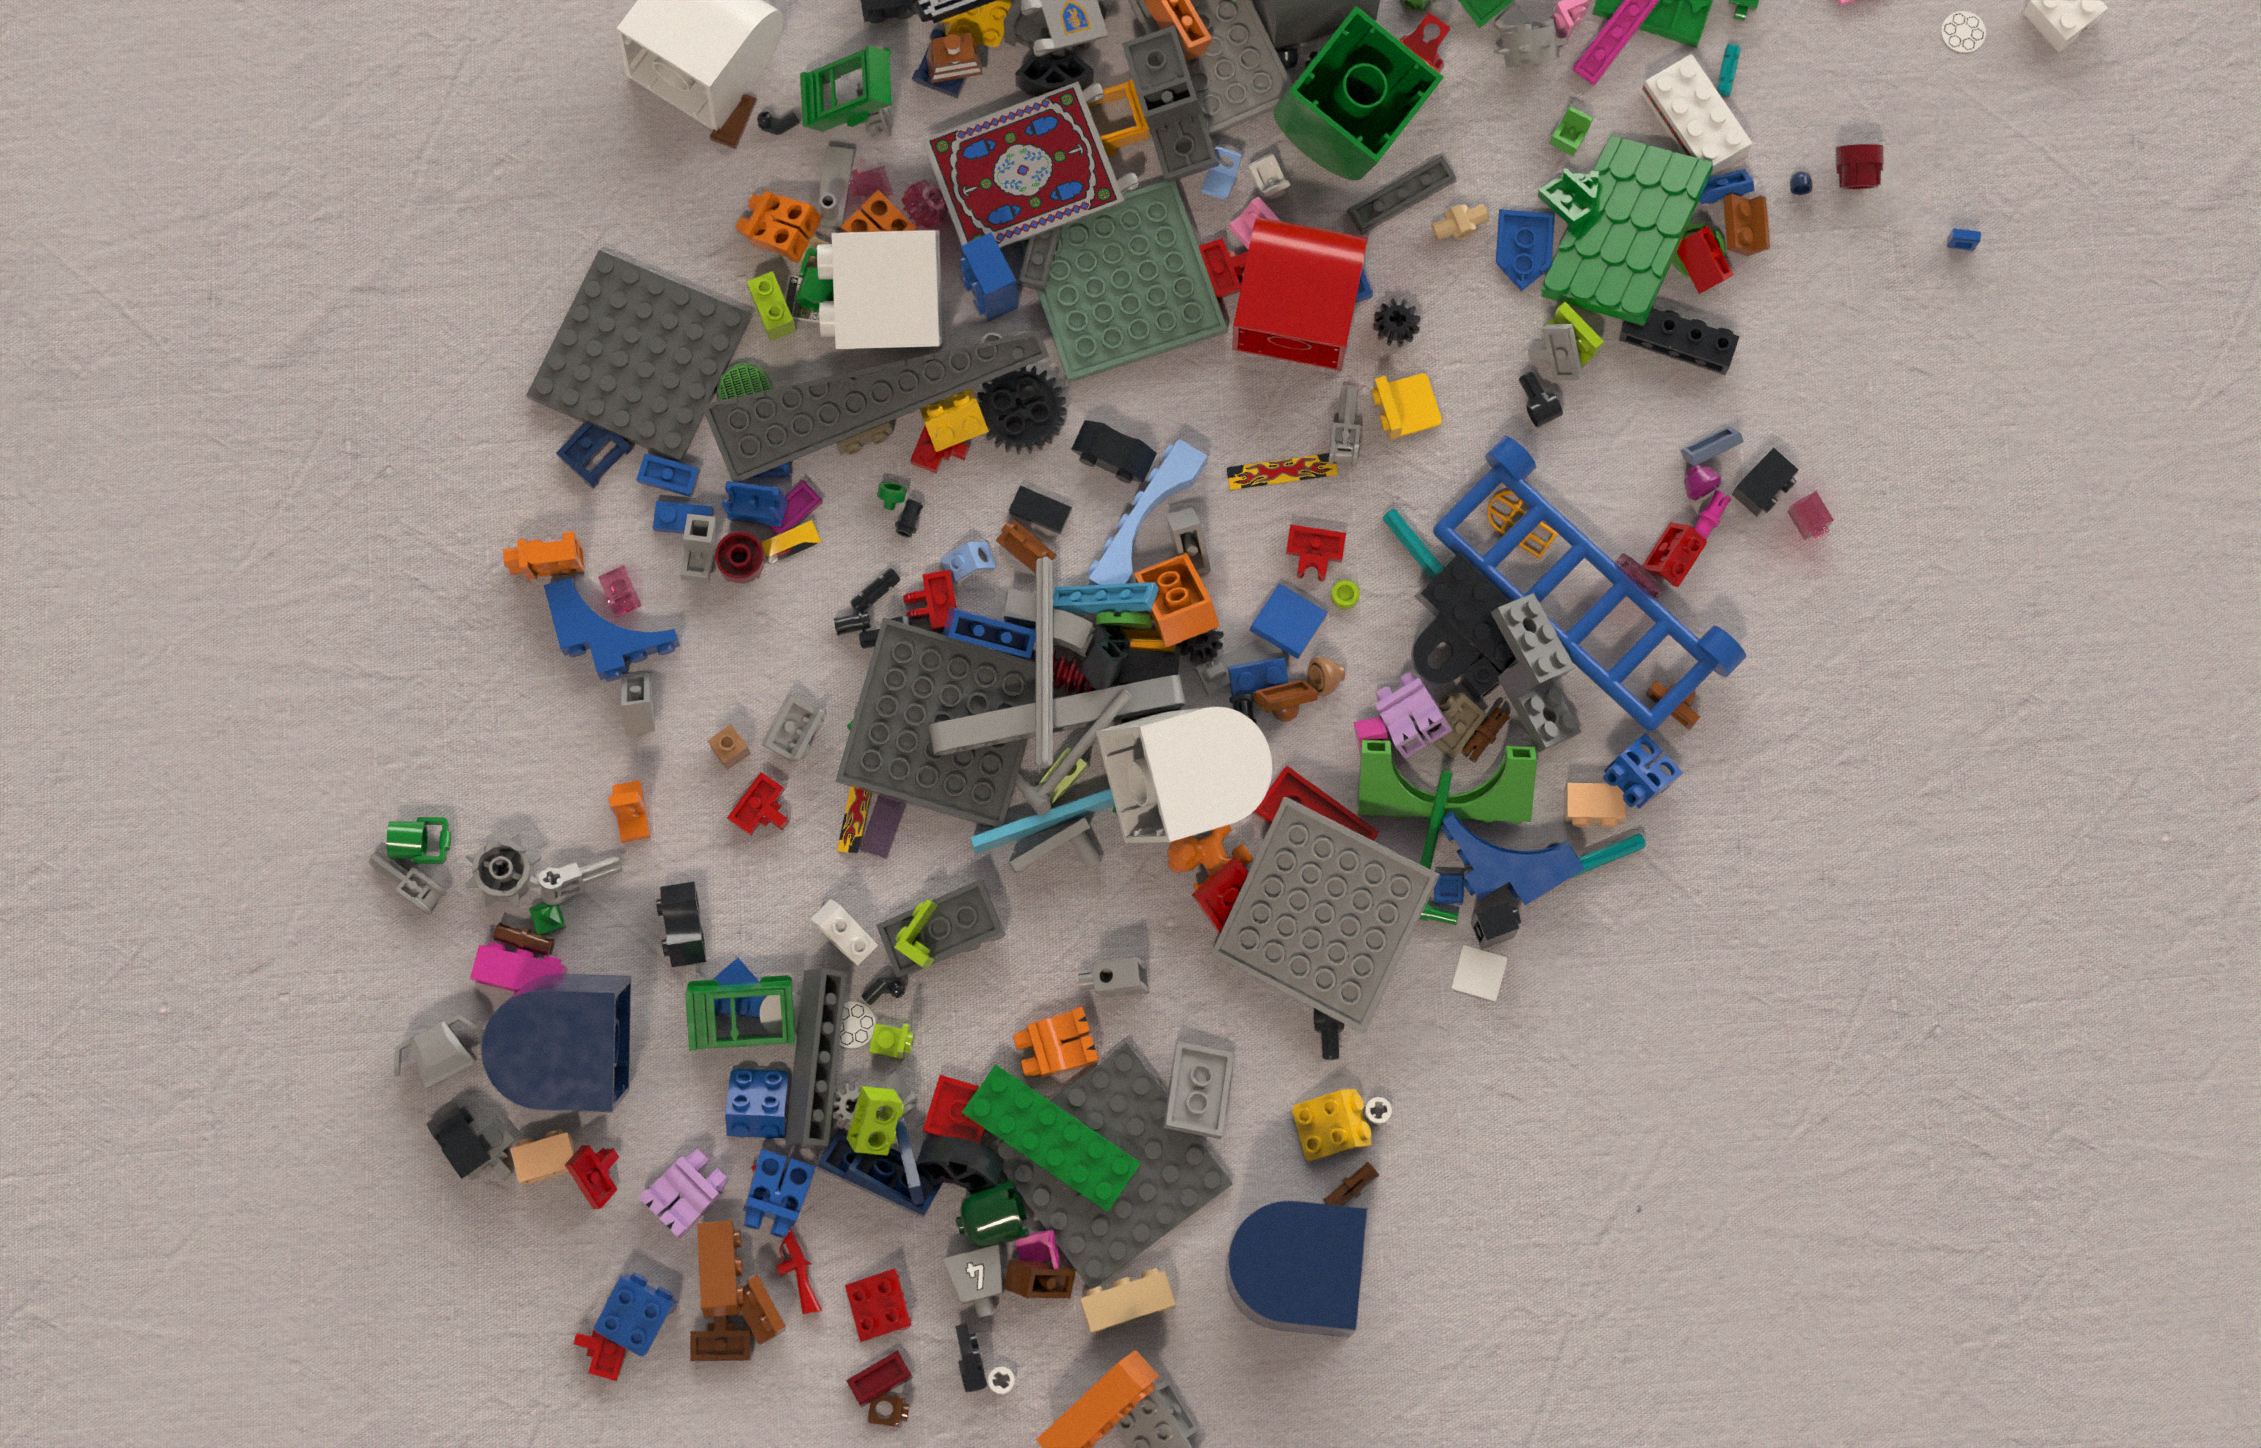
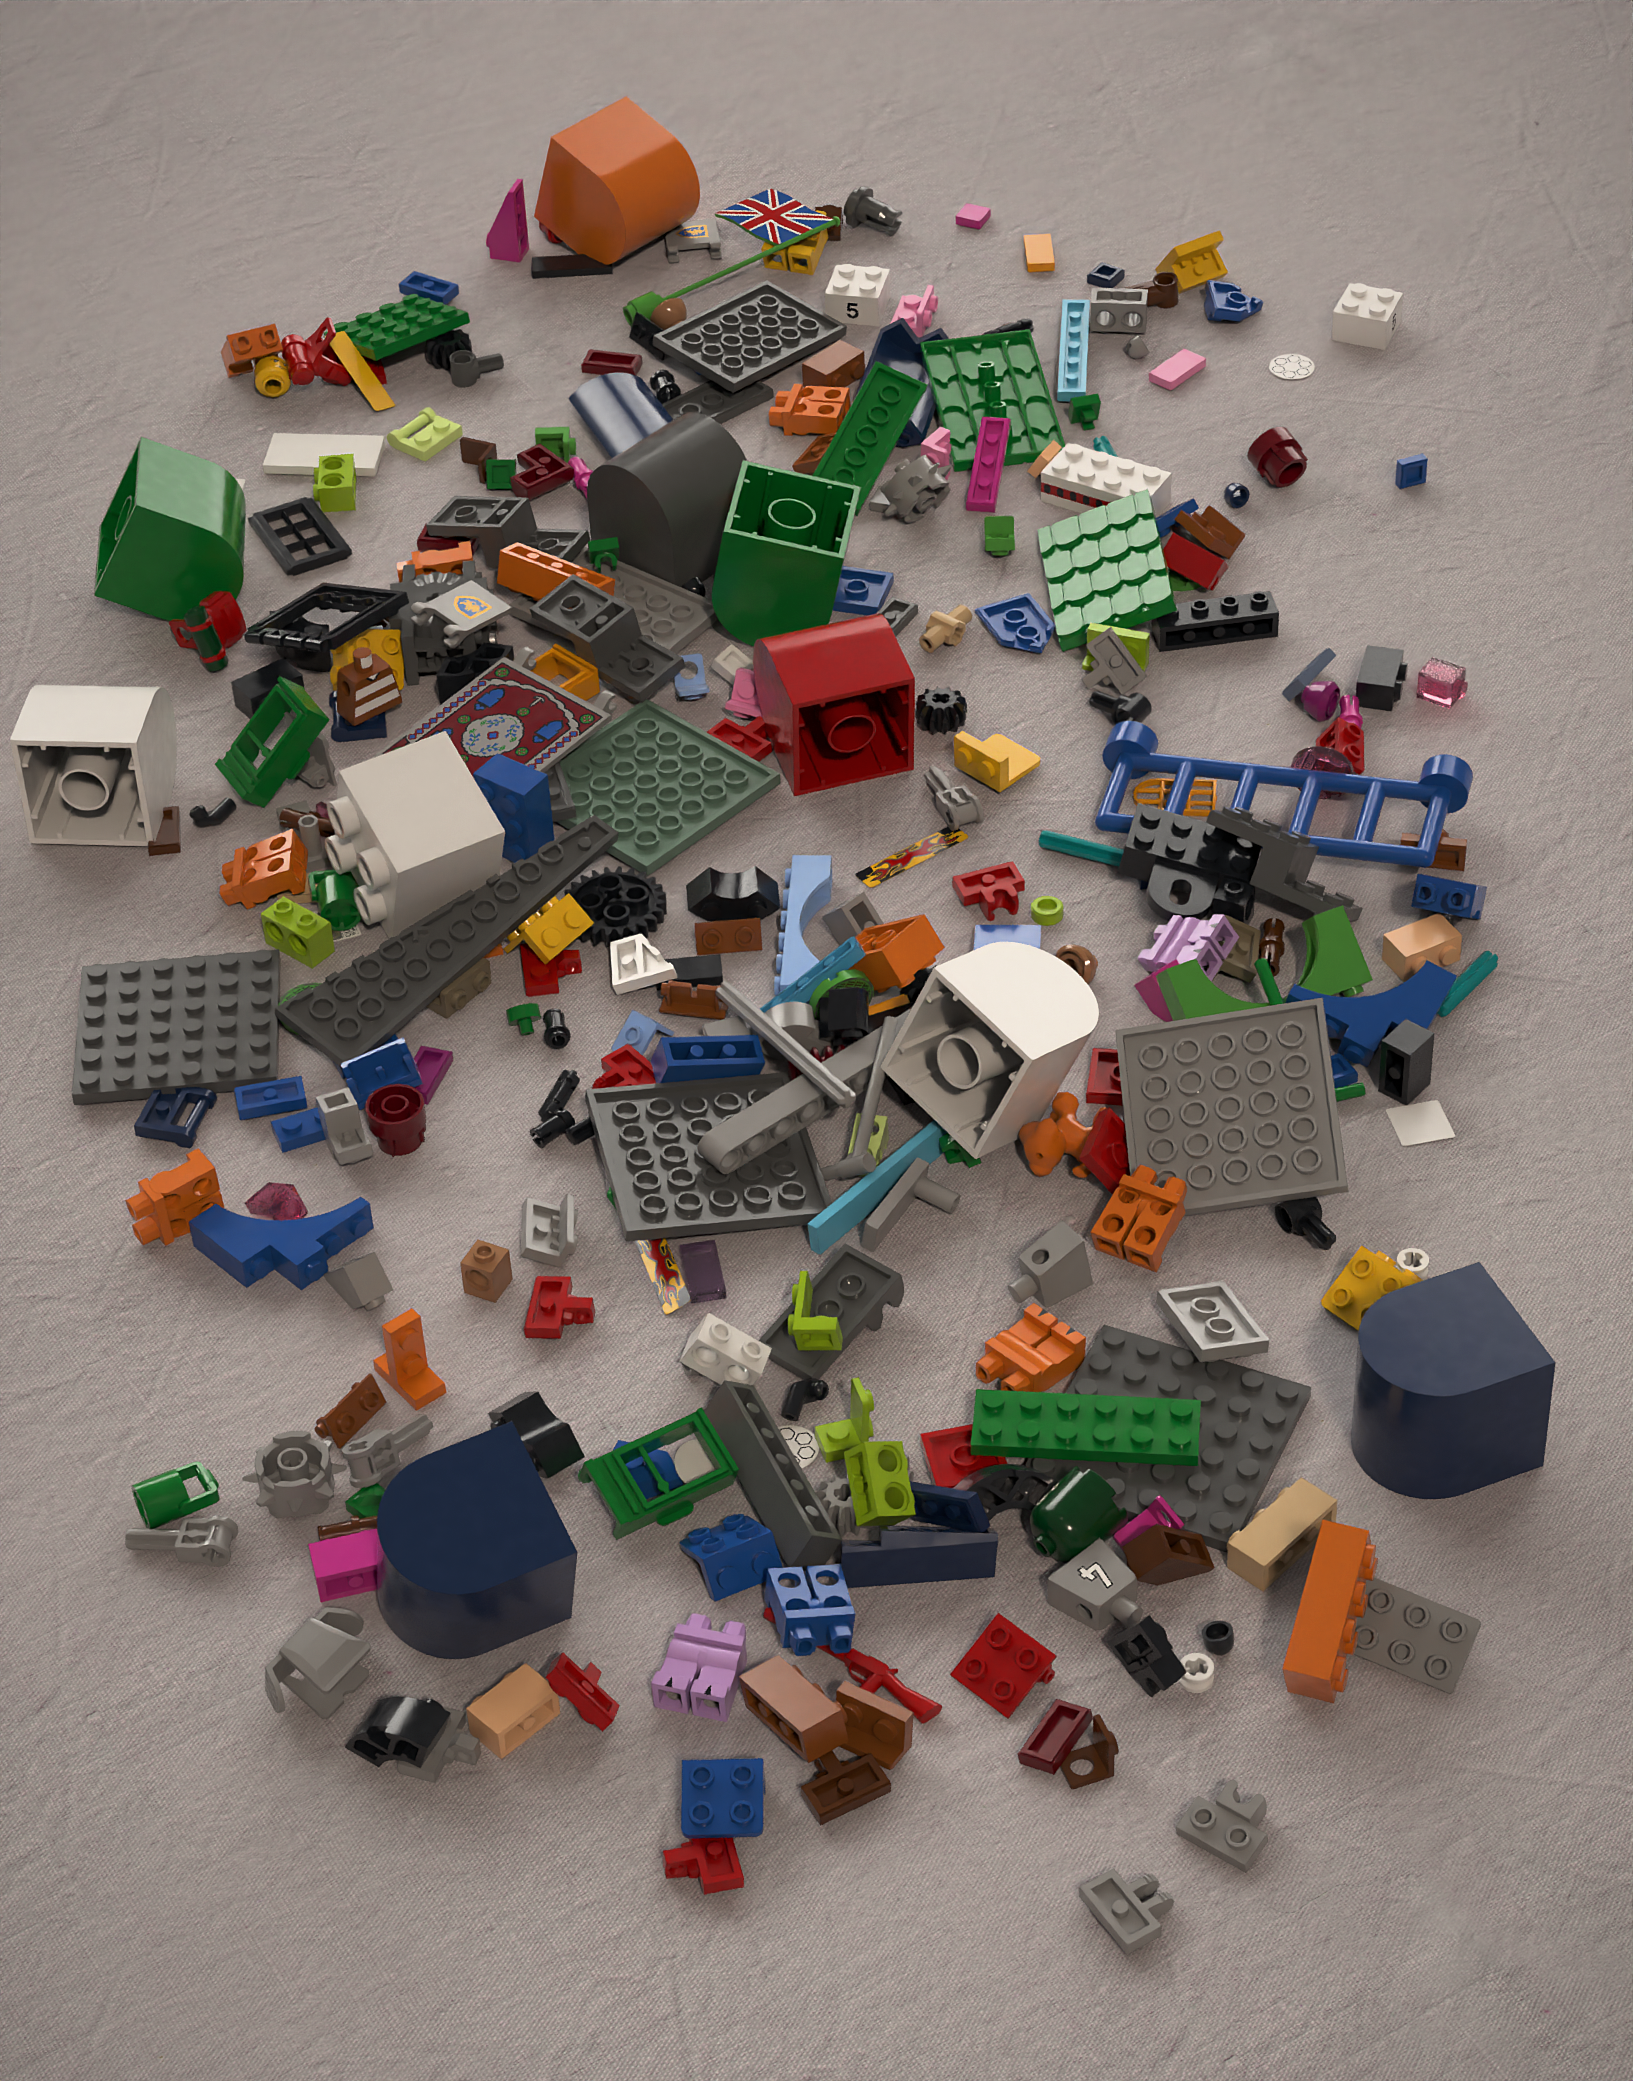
camera: 25 degrees left, 35 degrees down
(585, 820) = (351, 1412): none -> dark orange hinge
(791, 542) = (443, 1095): yellow sticker -> none
(838, 189) = (293, 816): none -> reddish brown pin
(1003, 485) = (637, 964): none -> white wing
(1028, 1358) = (1218, 1637): none -> black hinge
(1077, 485) = (728, 936): none -> dark orange hinge
(1216, 959) = (1140, 1218): none -> orange hips
(1426, 133) = (862, 590): none -> blue tile
(1572, 196) = (1035, 572): green slope -> none
(1668, 51) = (1044, 459): none -> light nougat tile

